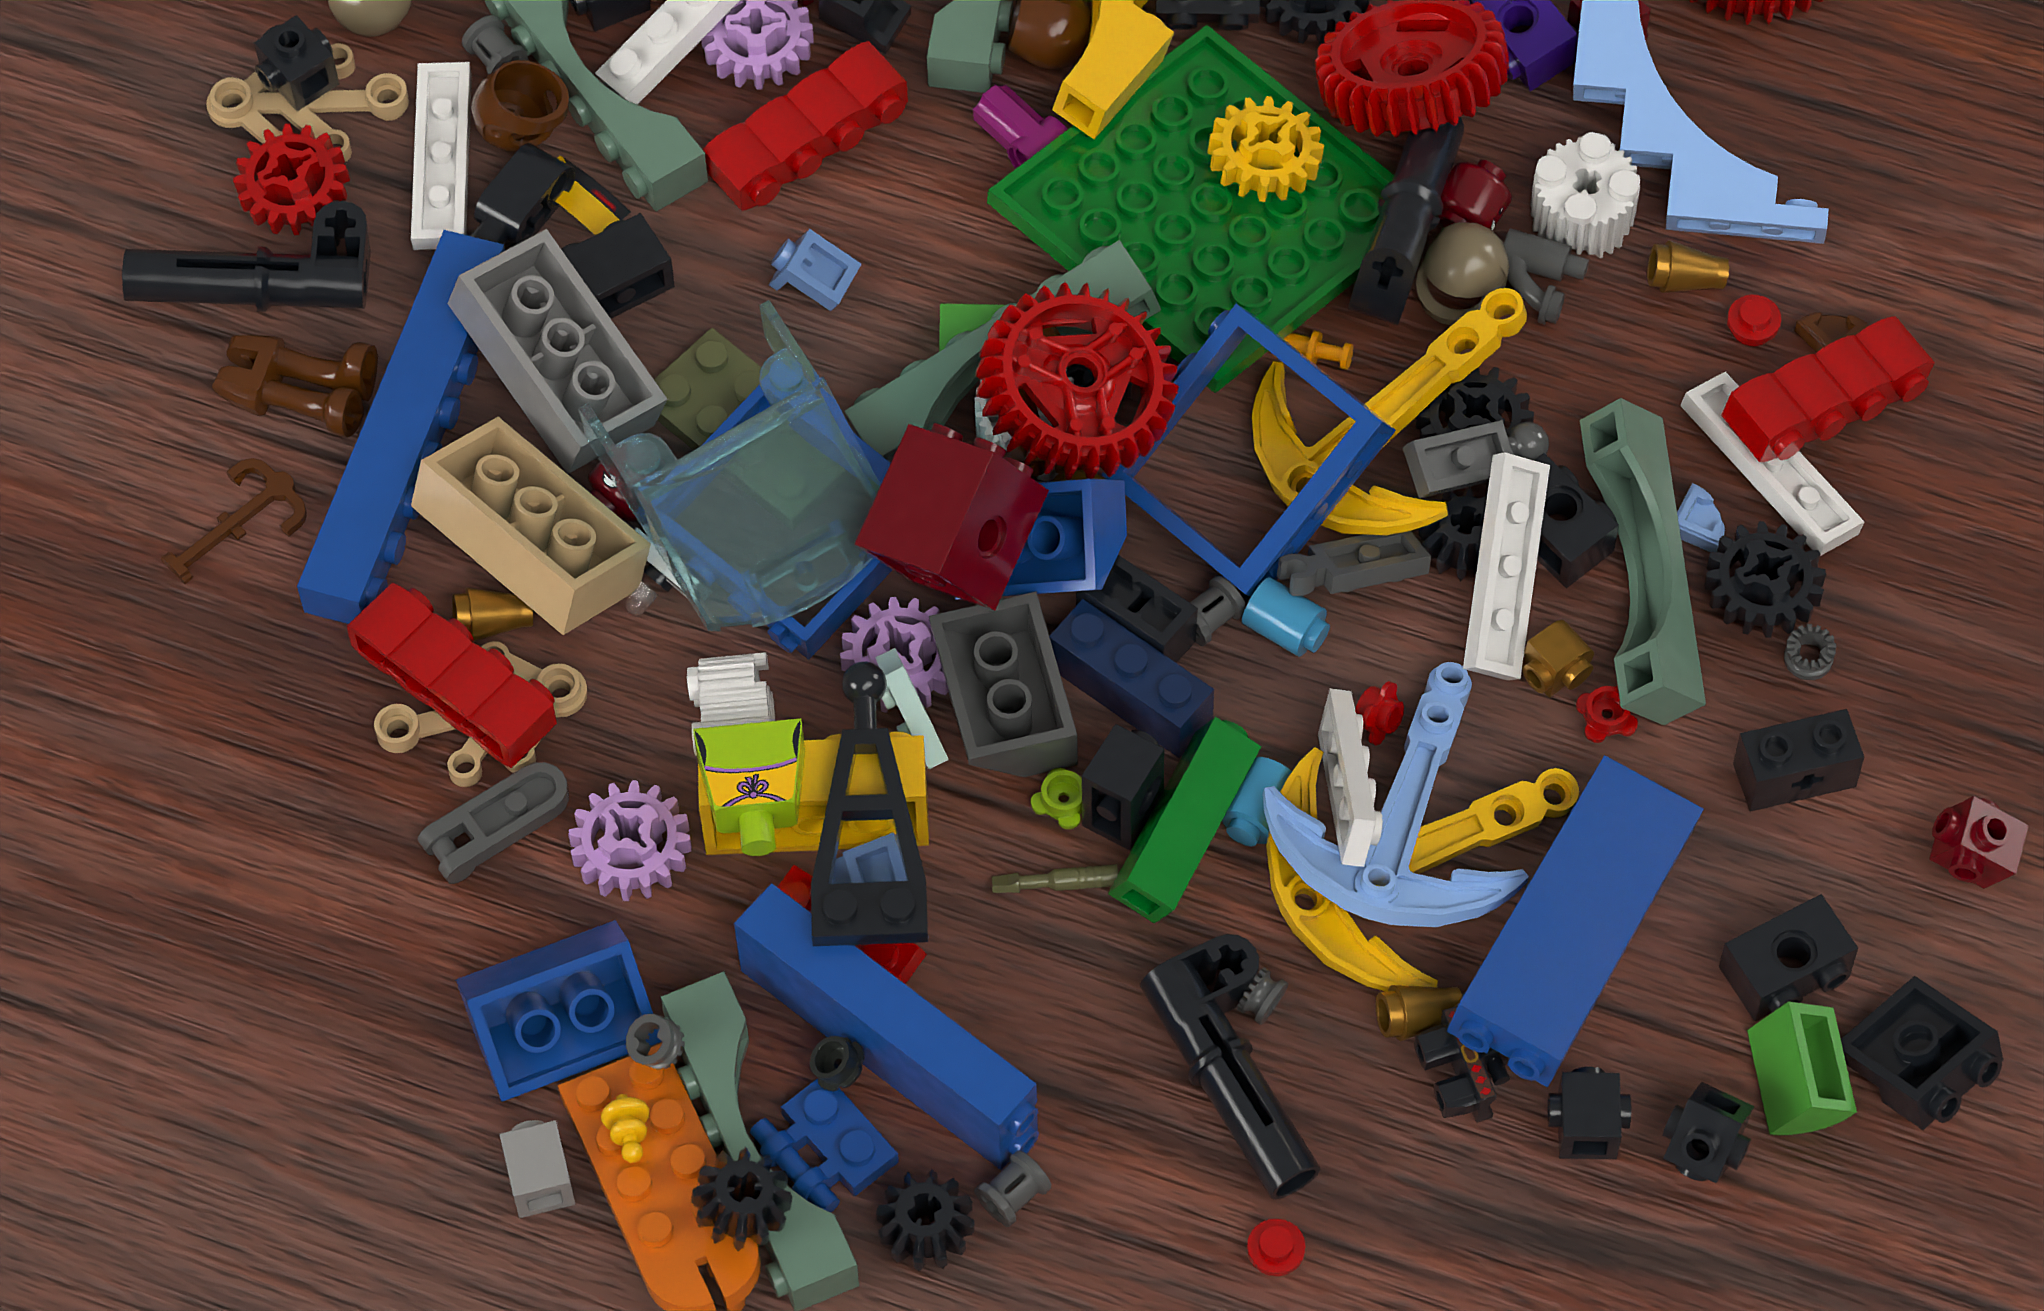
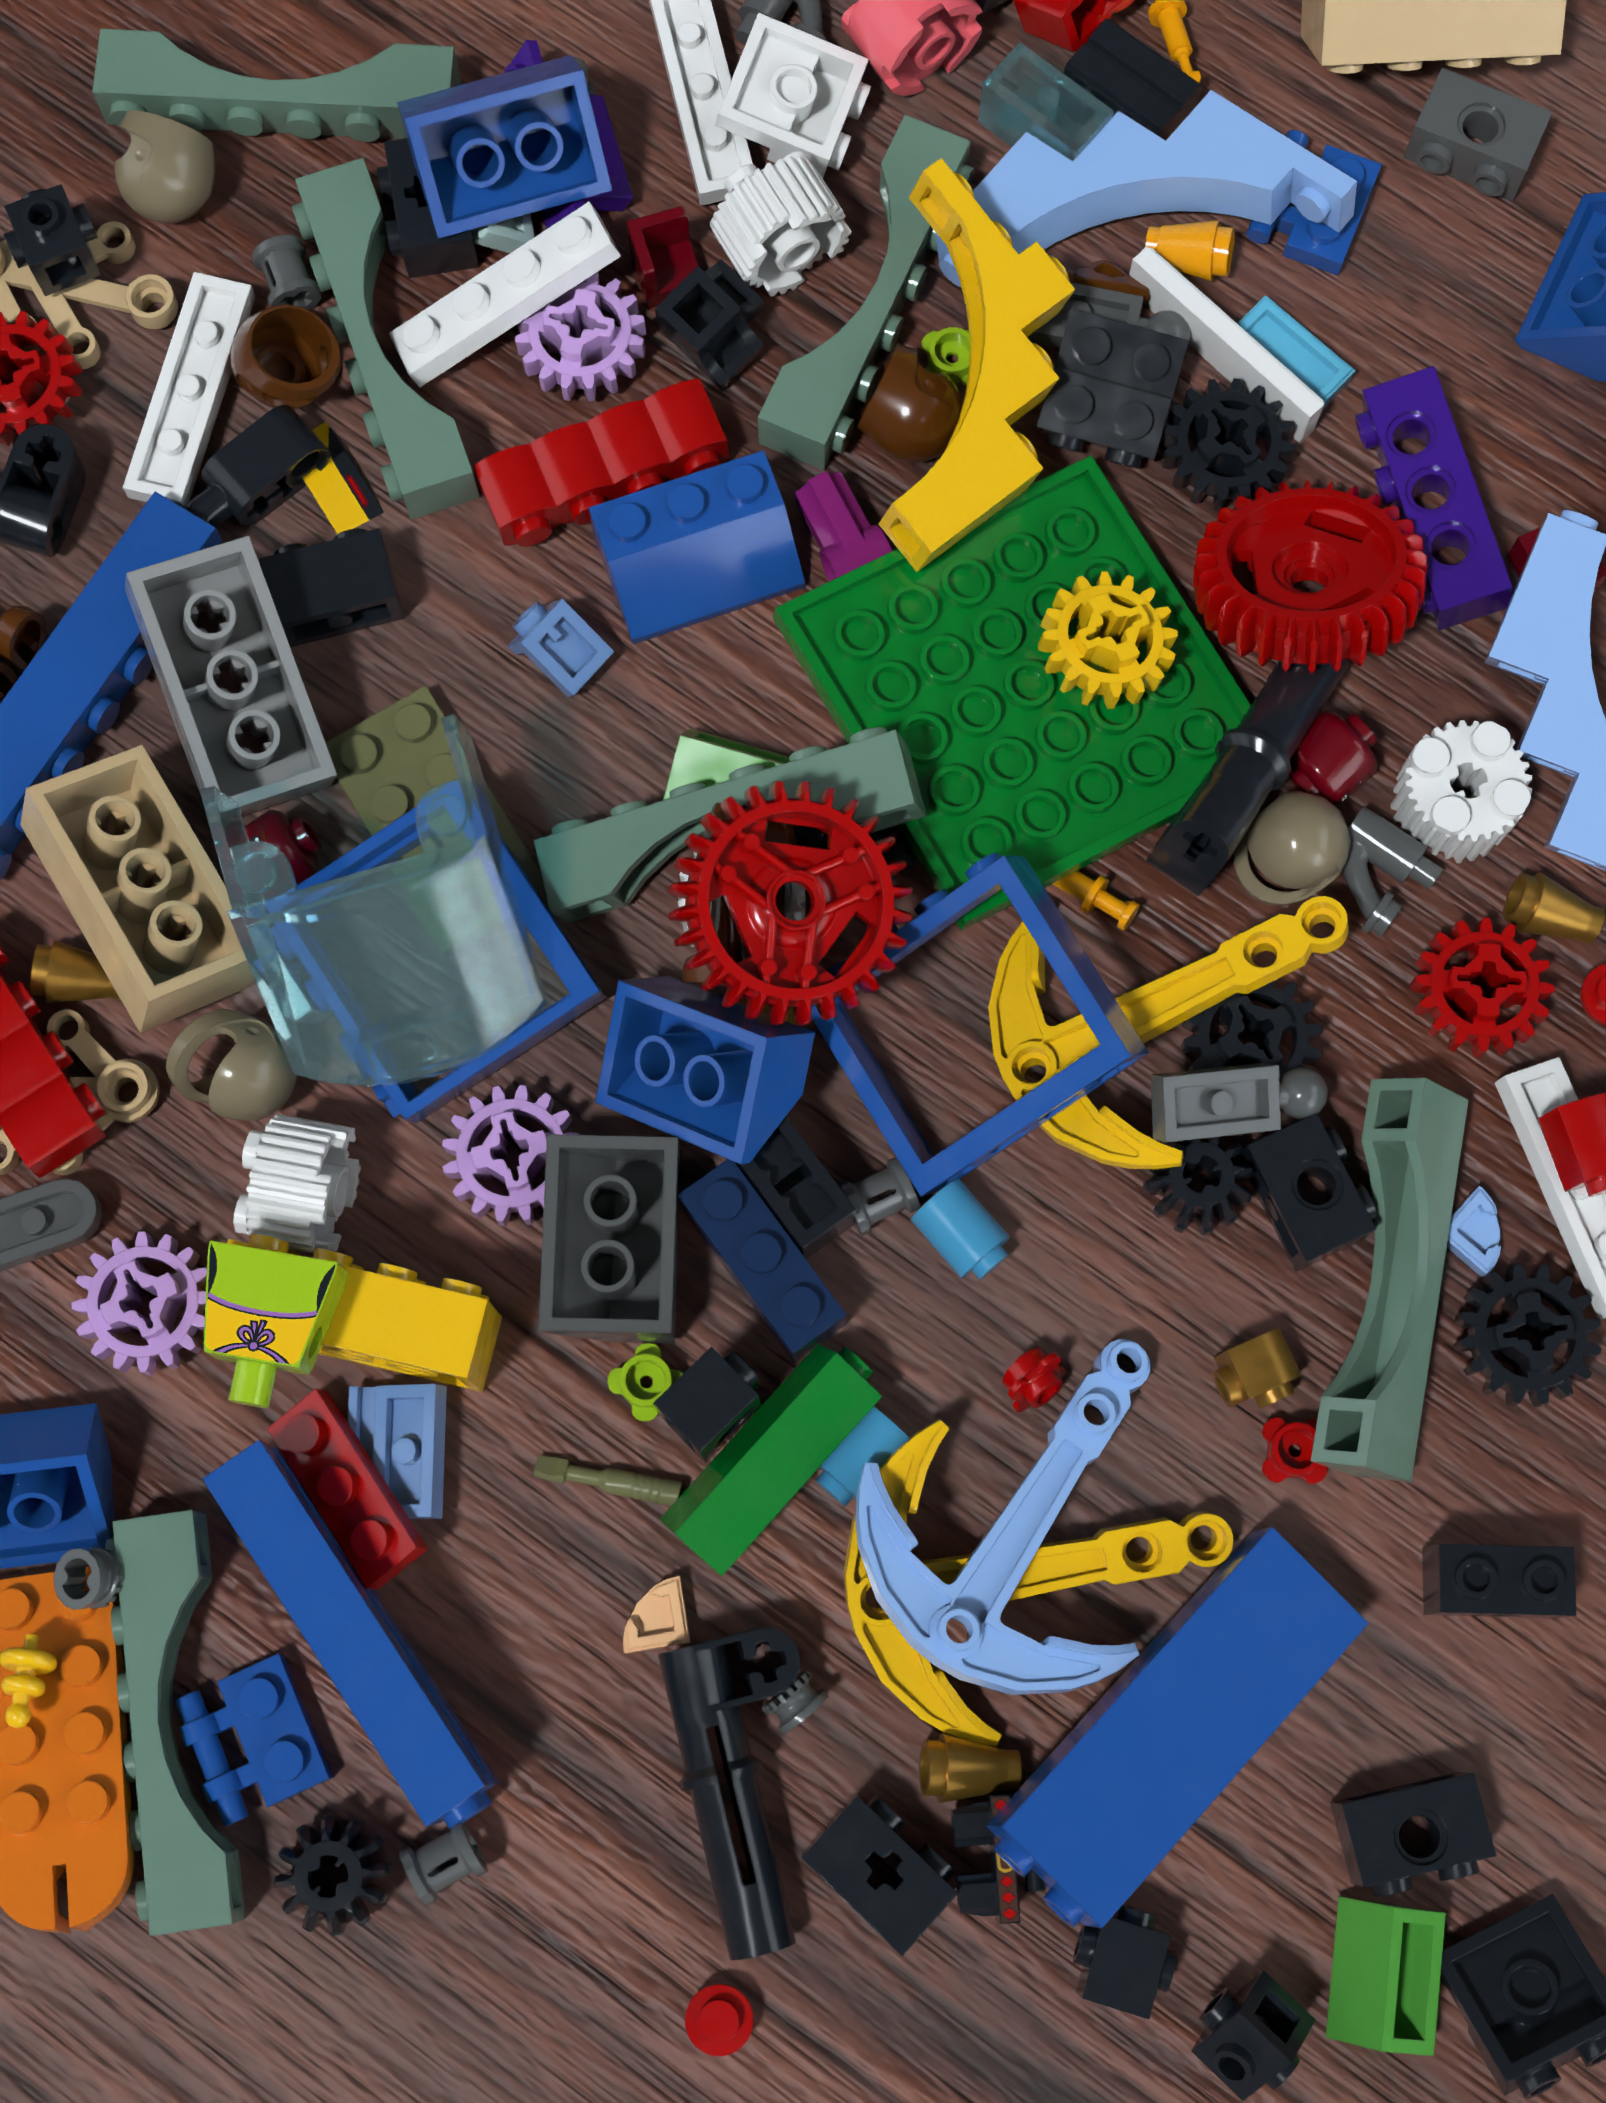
camera: 15 degrees right, 15 degrees up
(667, 644) = (251, 1078): none -> dark tan helmet
(756, 1214) = (115, 1846): black gear -> none
(836, 1062) = (277, 1659): pearl dark grey plate -> none
(867, 910) = (359, 1513): black plate -> none
(903, 694) = (499, 1245): light aqua plate -> none
(904, 169) = (697, 547): none -> blue slope
(952, 514) = (596, 1035): dark red brick -> none
(1127, 969) = (658, 1619): none -> light nougat tile
(1347, 778) = (962, 1497): white plate -> none
(1355, 563) = (1058, 1188): dark grey plate -> none
(1390, 1123) = (896, 1911): none -> black brick
(1506, 566) = (1230, 1249): white plate -> none
(1647, 337) = (1484, 961): none -> red gear
(1812, 636) = (1568, 1450): dark grey bush -> none

